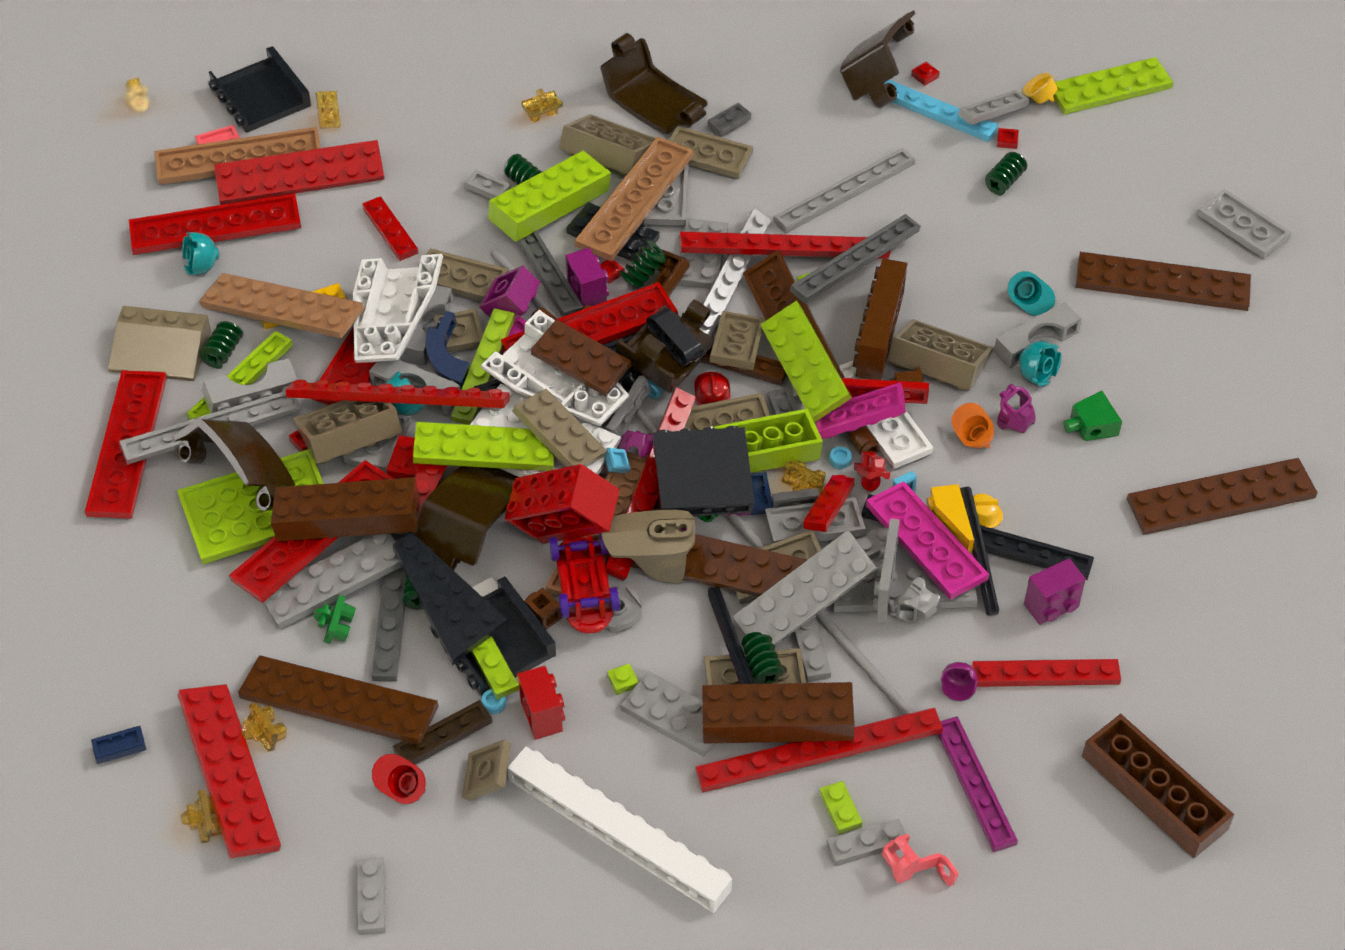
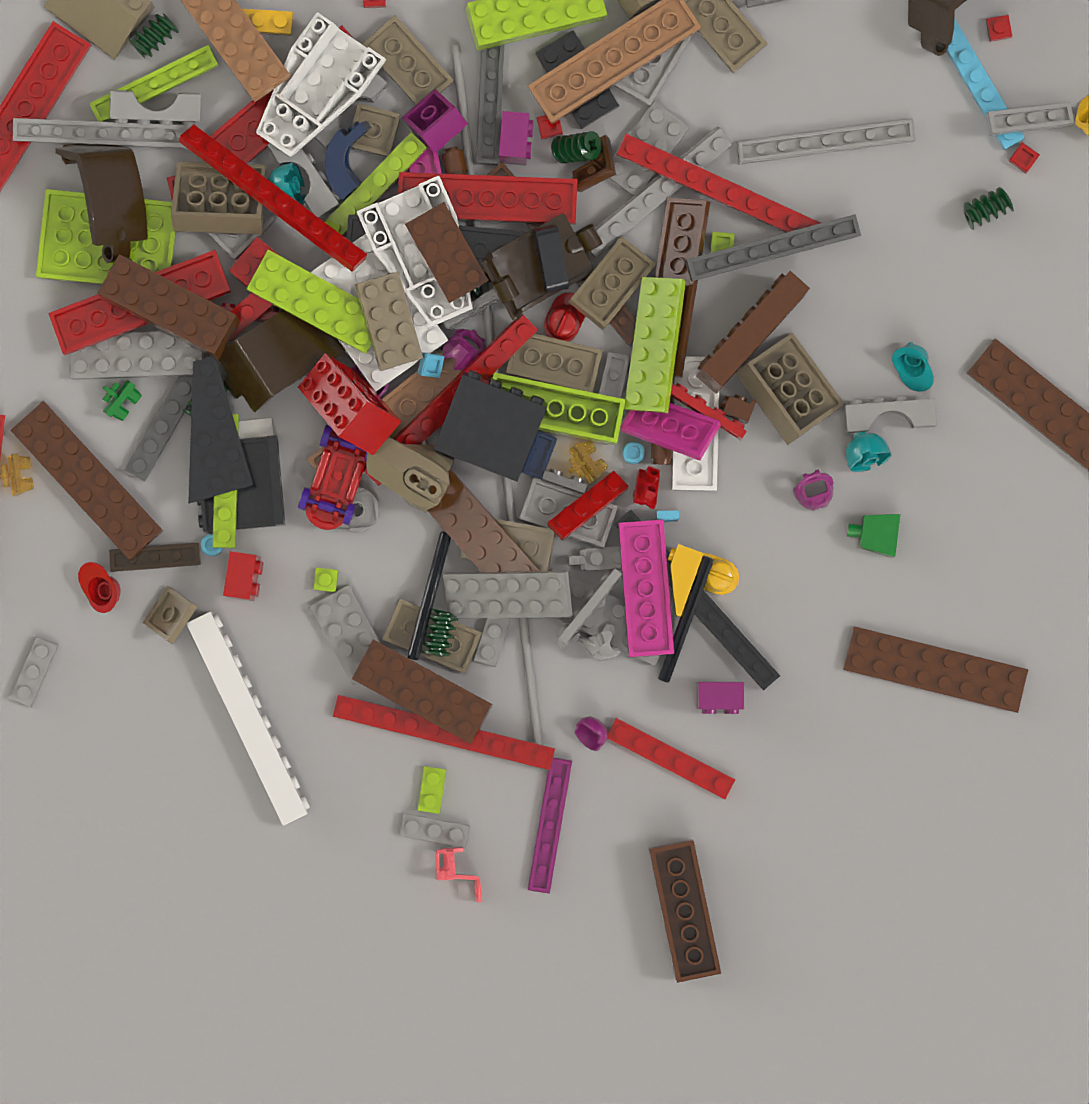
camera: 30 degrees right, 35 degrees up
(544, 607) = (290, 469): reddish brown brick -> none
(973, 426) = (763, 489): orange piece -> none

